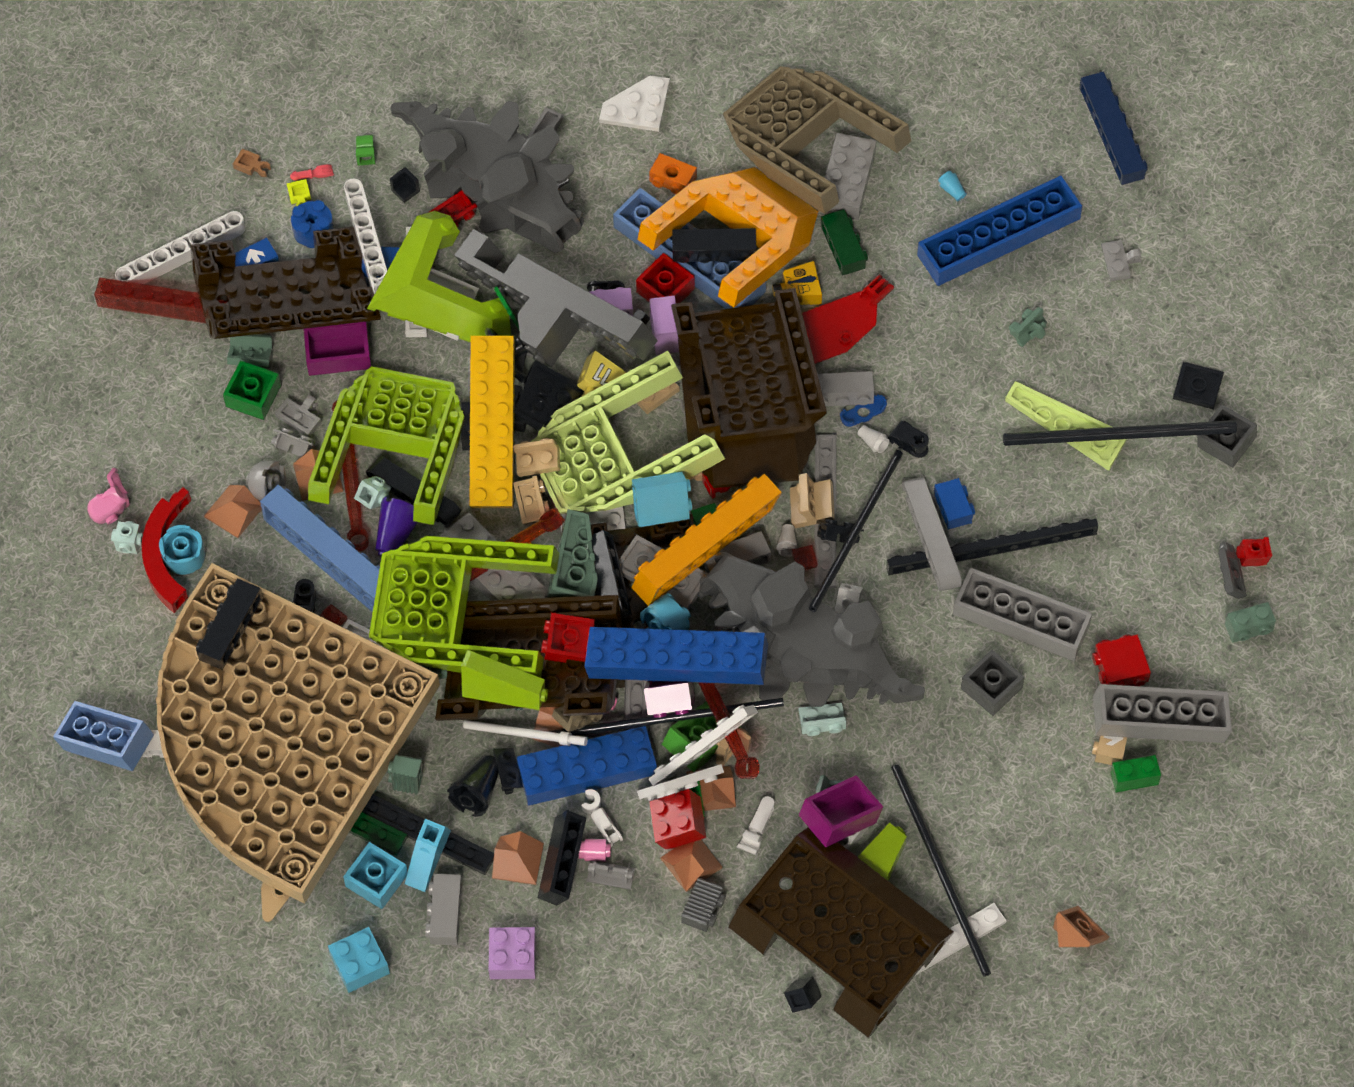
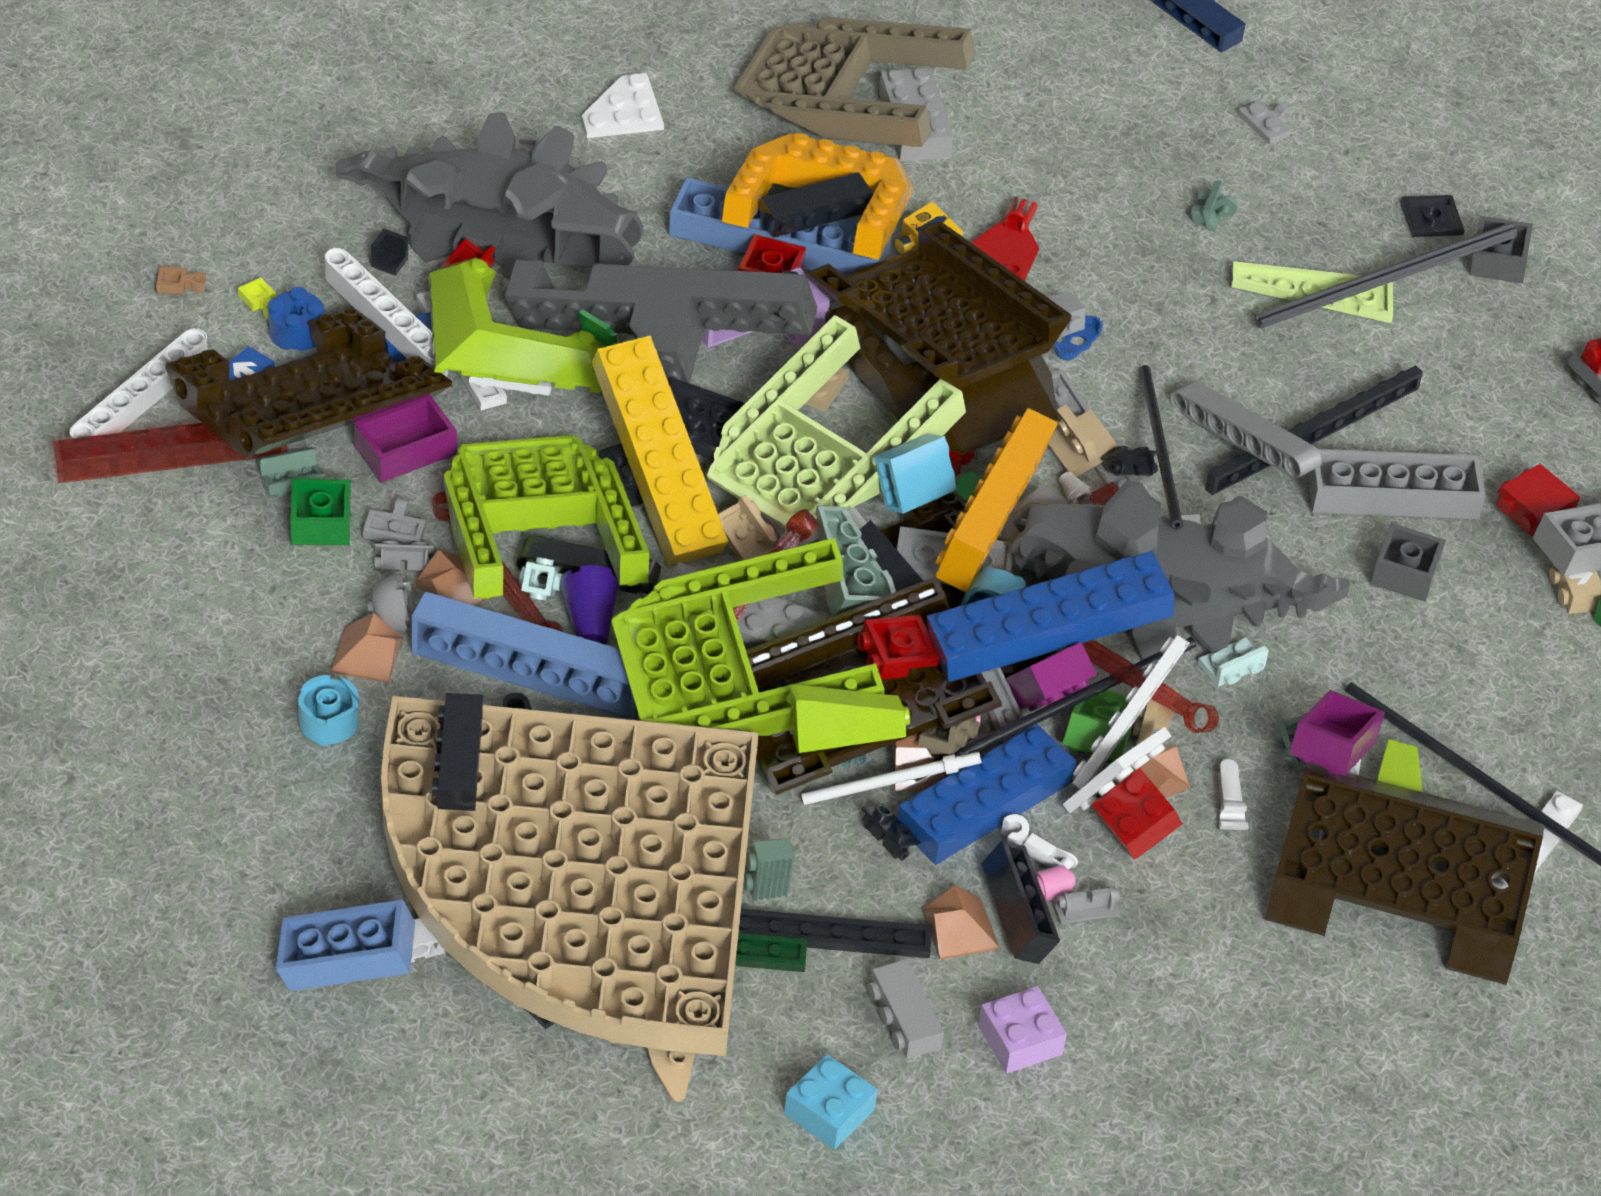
camera: 30 degrees left, 15 degrees down
(111, 503) = (202, 686): bright pink head -> none
(127, 537) = (246, 718): light aqua brick -> none
(159, 521) = (299, 740): red arch -> none
(319, 172) = (270, 269): coral piece -> none
(365, 148) = (316, 225): bright green leg -> none
(375, 875) = (796, 996): medium azure brick -> none
(426, 854) = (850, 949): medium azure slope -> none
(475, 786) = (864, 861): black cone -> none
(537, 457) = (733, 477): tan bracket -> none
(597, 372) = (746, 376): light yellow torso -> none
(667, 166) = (710, 162): orange brick -> none
(691, 862) = (1175, 864): nougat slope -> none
(703, 904) = (1221, 901): dark grey brick -> none
(802, 994) = (1401, 960): black panel -> none
(844, 242) = (950, 179): dark green brick -> none
(875, 440) = (1109, 361): white cone -> none
(909, 439) = (1150, 349): black piece -> none
(952, 185) = (1036, 95): medium azure cone -> none
(953, 503) = (1246, 393): blue brick -> none
(999, 230) = (1121, 122): blue brick -> none

